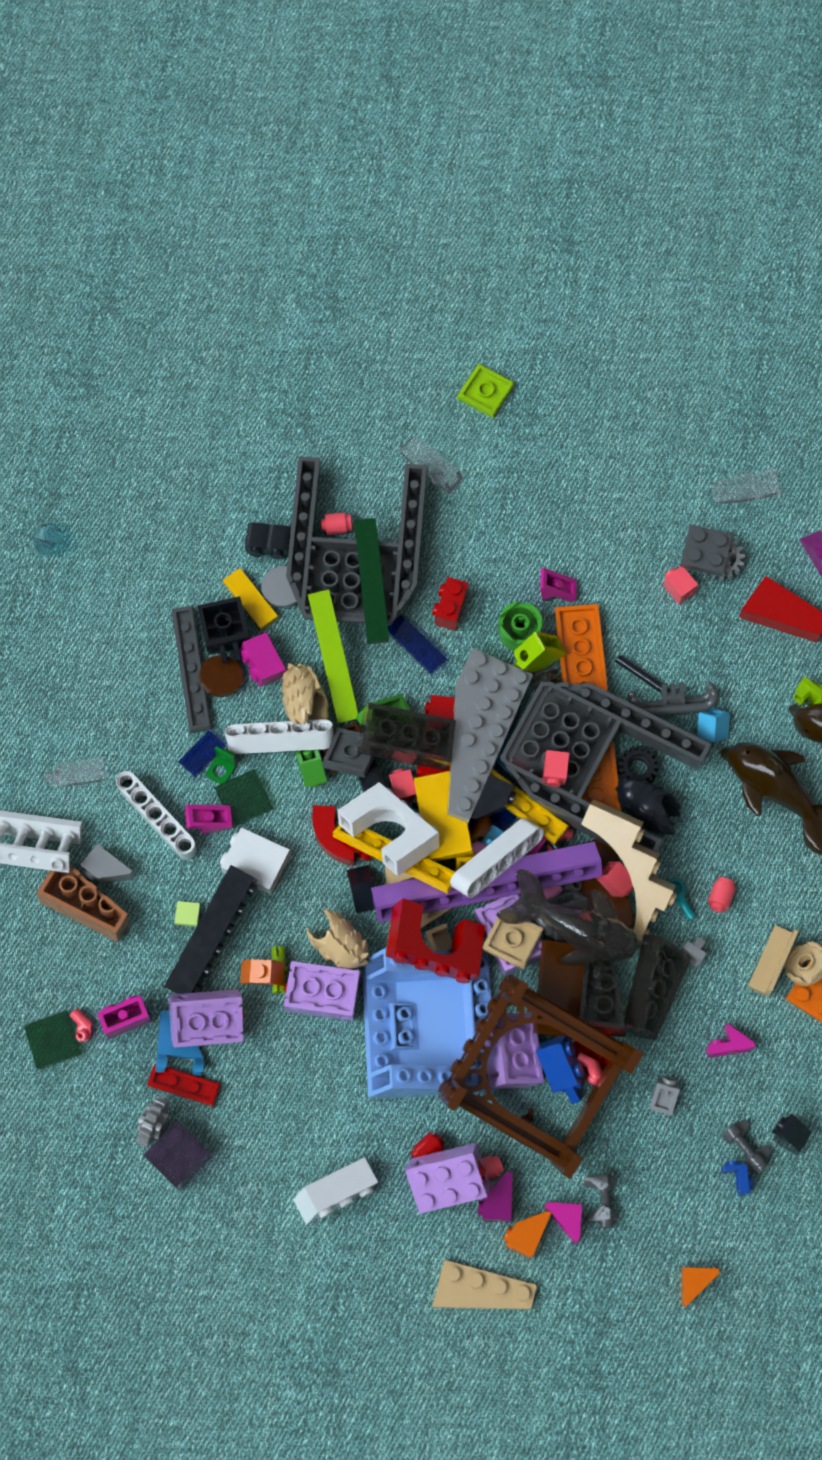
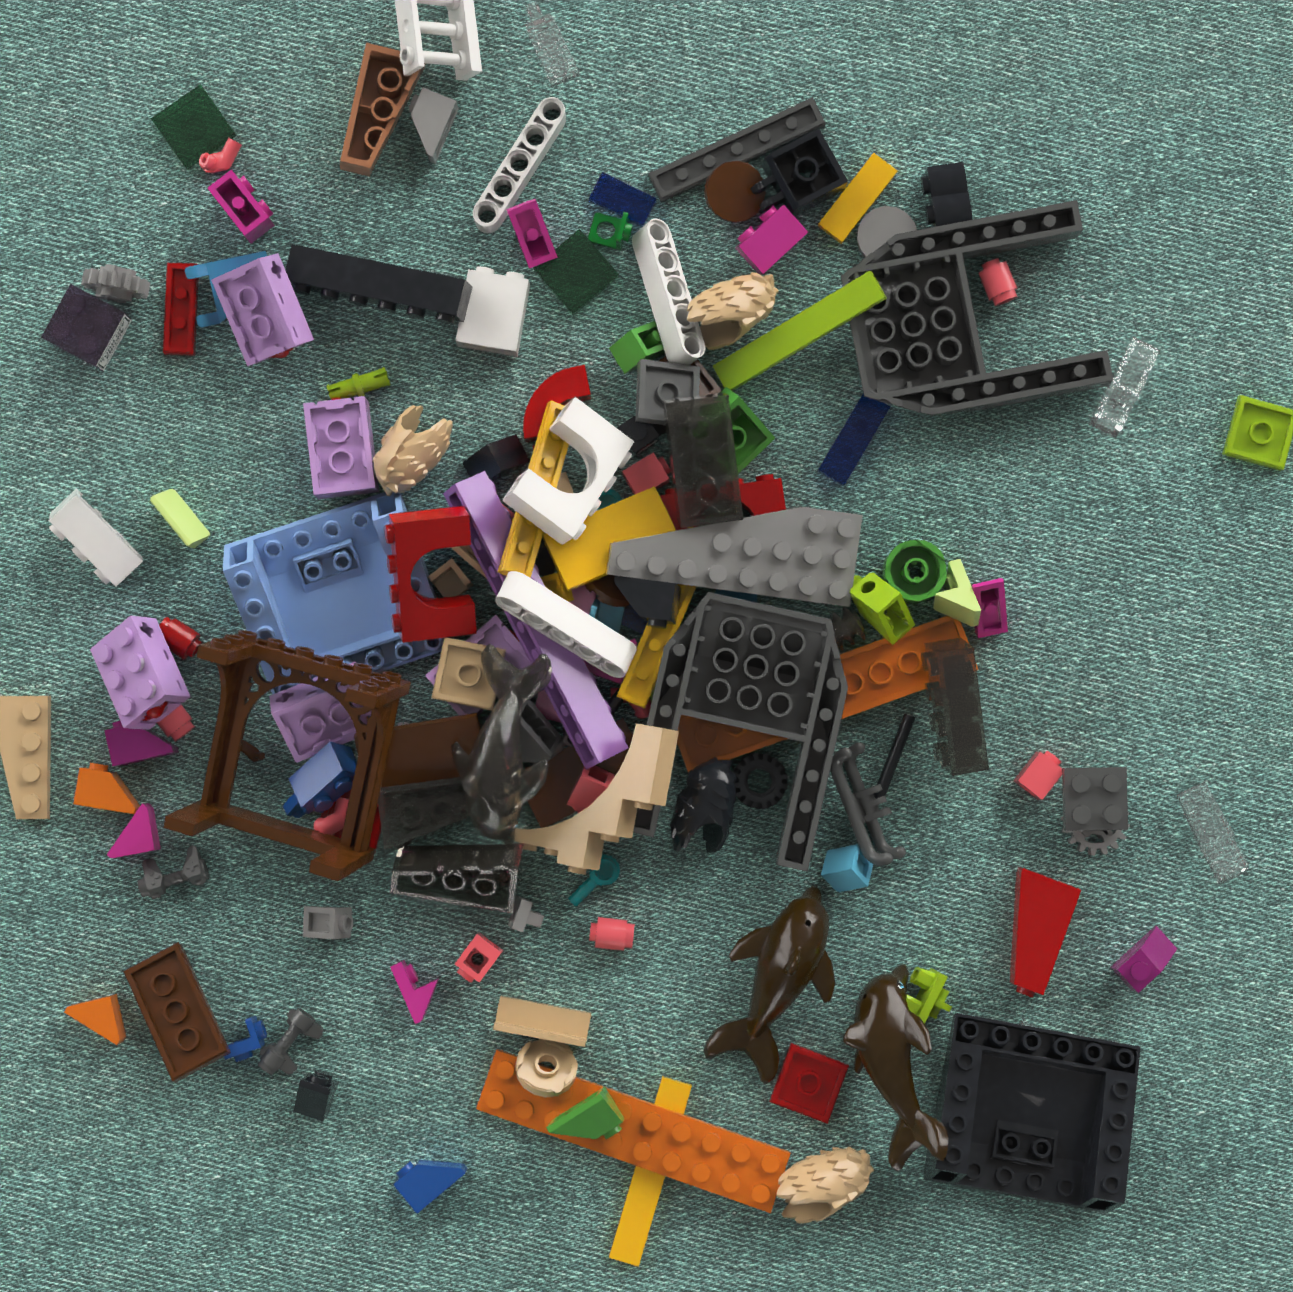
camera: 75 degrees right, 15 degrees up
(187, 914) = (401, 246): yellowish green tile -> none
(262, 972) = (343, 364): orange slope -> none
(339, 1125) = (180, 517): none -> yellowish green slope
(371, 581) = (918, 351): dark green tile -> none
(451, 604) = (923, 470): red brick -> none
(547, 601) = (959, 598): none -> yellowish green slope
(555, 768) = (708, 669): coral brick -> none
(621, 620) = (956, 706): none -> clear smoke brick
(706, 1221) = (177, 1012): none -> reddish brown tile
(717, 984) = (483, 946): none -> coral brick

